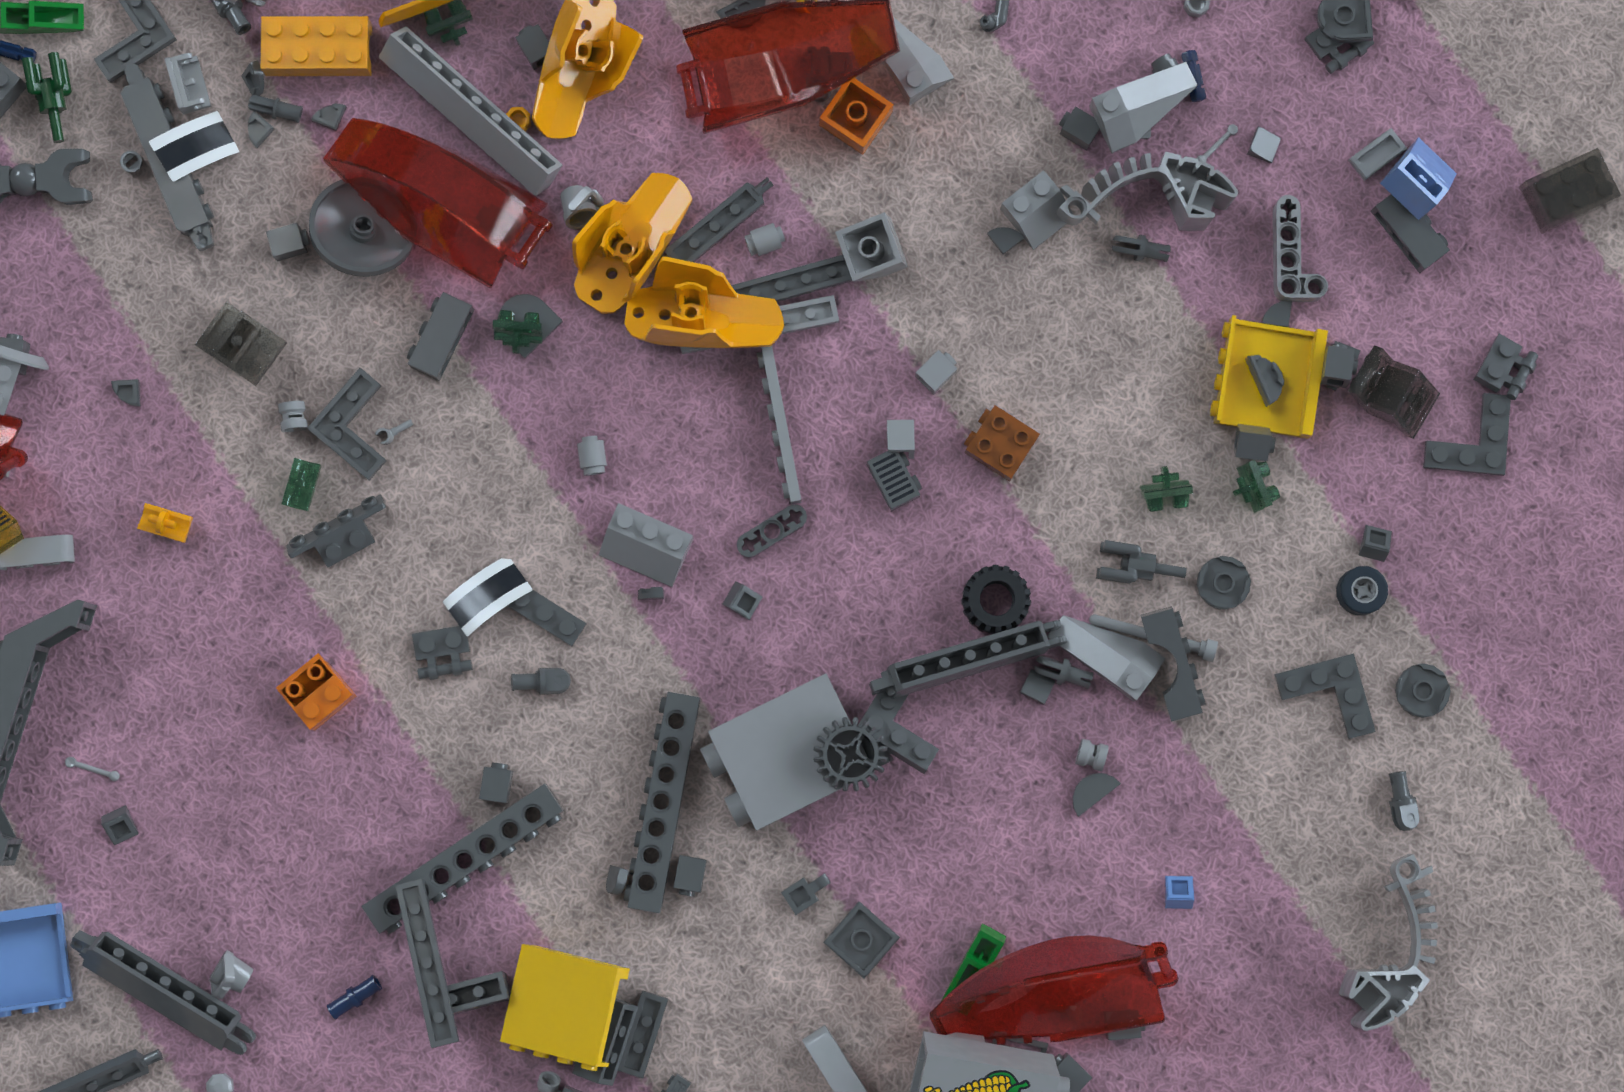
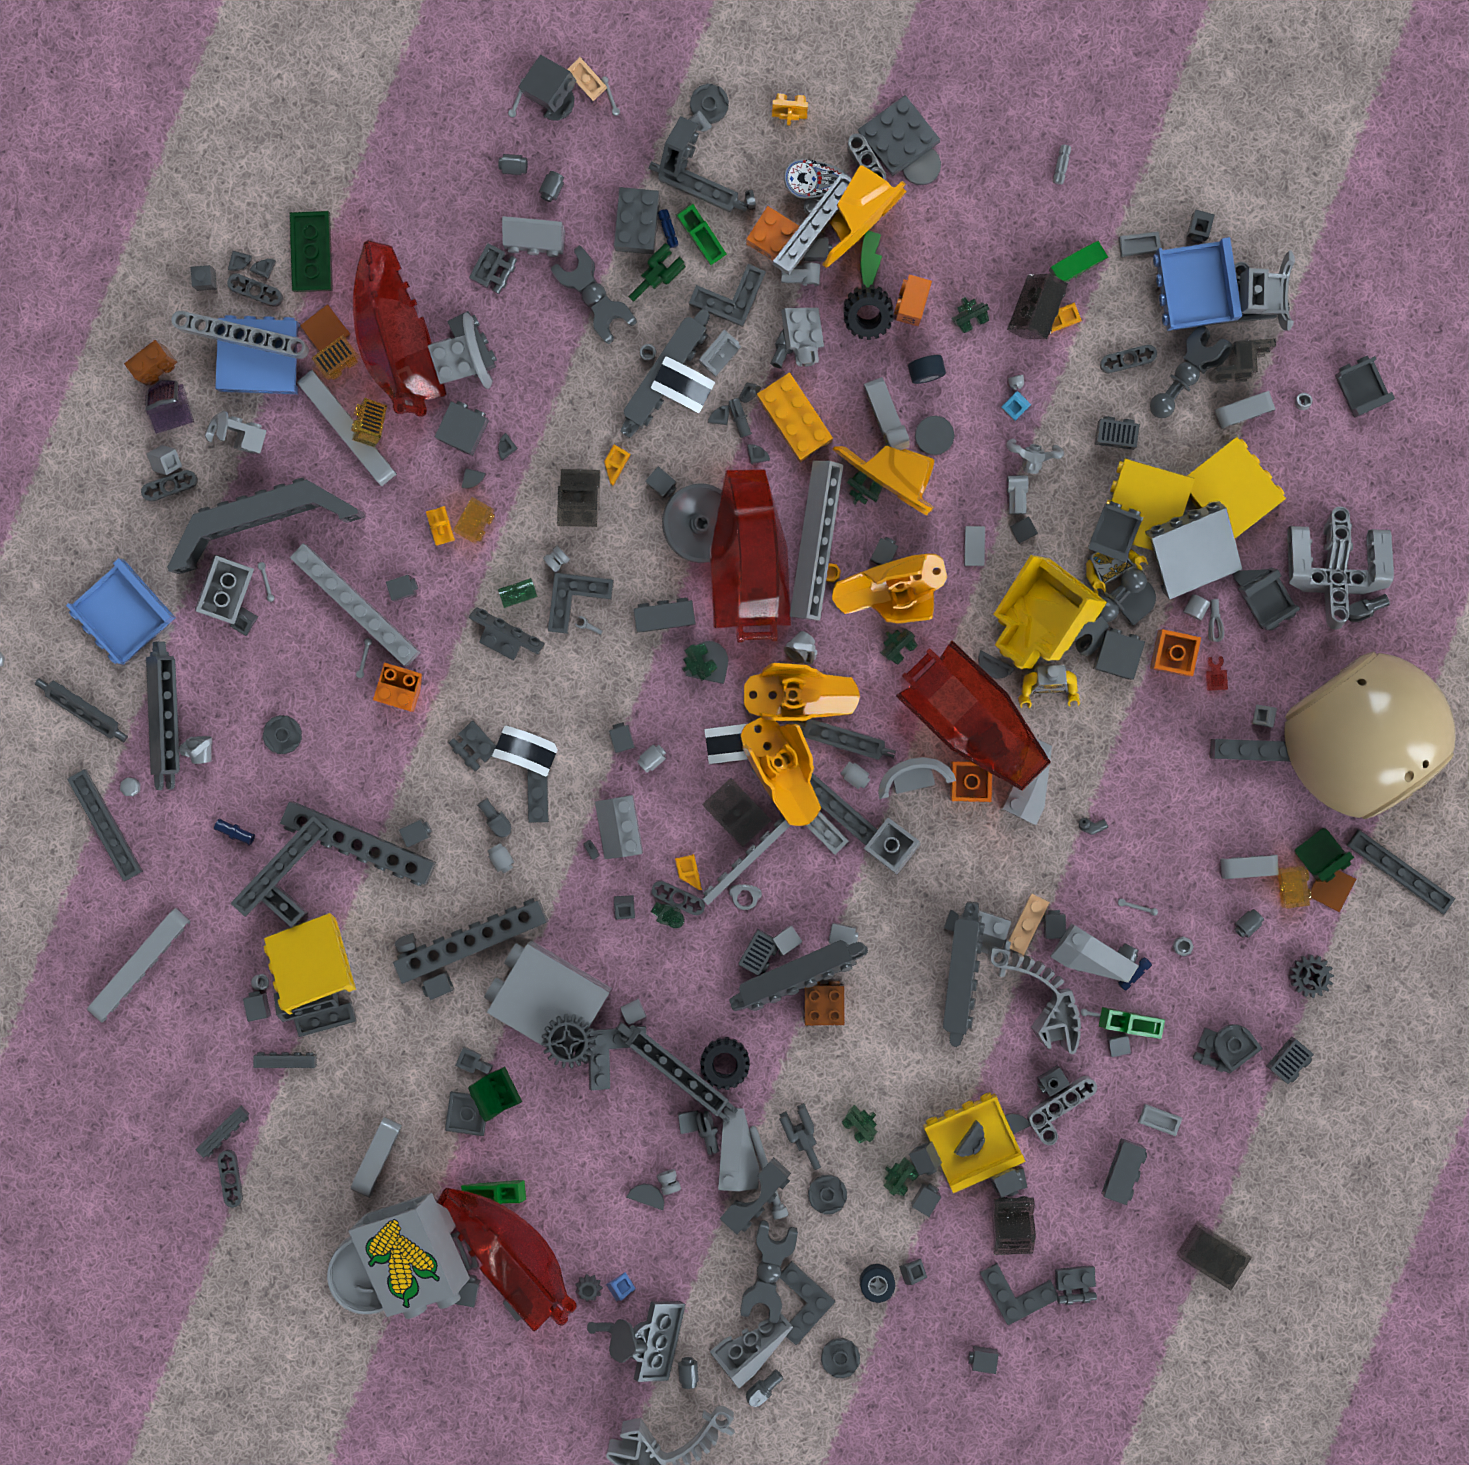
camera: 60 degrees right, 5 degrees up
(66, 820) = (224, 589): none -> light grey slope
(71, 425) = (462, 427): none -> dark grey brick
(137, 453) = (472, 478): none -> dark grey tile
(186, 481) = (474, 521): none -> clear yellow brick
(187, 680) = (355, 604): none -> light grey brick
(205, 613) = (402, 587): none -> dark grey brick
(230, 279) = (615, 462): none -> light orange tile
(271, 729) = (360, 674): none -> light grey hinge
(286, 872) = (283, 729): none -> dark grey tile
(546, 475) = (621, 737): none -> dark grey brick
(591, 704) = (500, 858): none -> light grey brick
(632, 363) = (725, 744): none -> sticker
(645, 100) = (896, 642): none -> clear green hips
(716, 397) = (736, 812): none -> clear smoke bracket
(748, 499) = (688, 870): none -> light orange tile
(783, 551) = (668, 915): none -> clear green hips
(806, 170) = (913, 775): none -> light grey piece
(806, 459) = (754, 891): none -> light grey piece
(858, 888) = (494, 1093): none -> dark green bracket
(868, 667) = (633, 1011): none -> light grey brick
(947, 448) = (797, 974): none -> dark grey hinge
(1058, 155) = (1027, 923): none -> light nougat plate
(1066, 261) = (962, 973): none -> dark grey hinge
(1104, 39) = (1121, 902): none -> light grey hinge
(1142, 248) = (1003, 1012): dark grey arm -> none
(1156, 929) = (588, 1288): none -> dark grey piece
(1246, 114) = (1131, 1023): none -> green slope
(1256, 243) = (1052, 1081): none -> dark grey brick
(1261, 896) = (649, 1342): none -> dark grey plate
(1270, 706) = (768, 1272): none -> dark grey piece
(1300, 472) = (926, 1199): none -> dark grey brick
(1329, 877) = (688, 1373): none -> dark grey brick
(1350, 795) = (747, 1353): none -> light grey wedge
(1419, 179) = (1159, 1159): medium blue slope -> none
(1527, 526) = (983, 1359): none -> dark grey brick

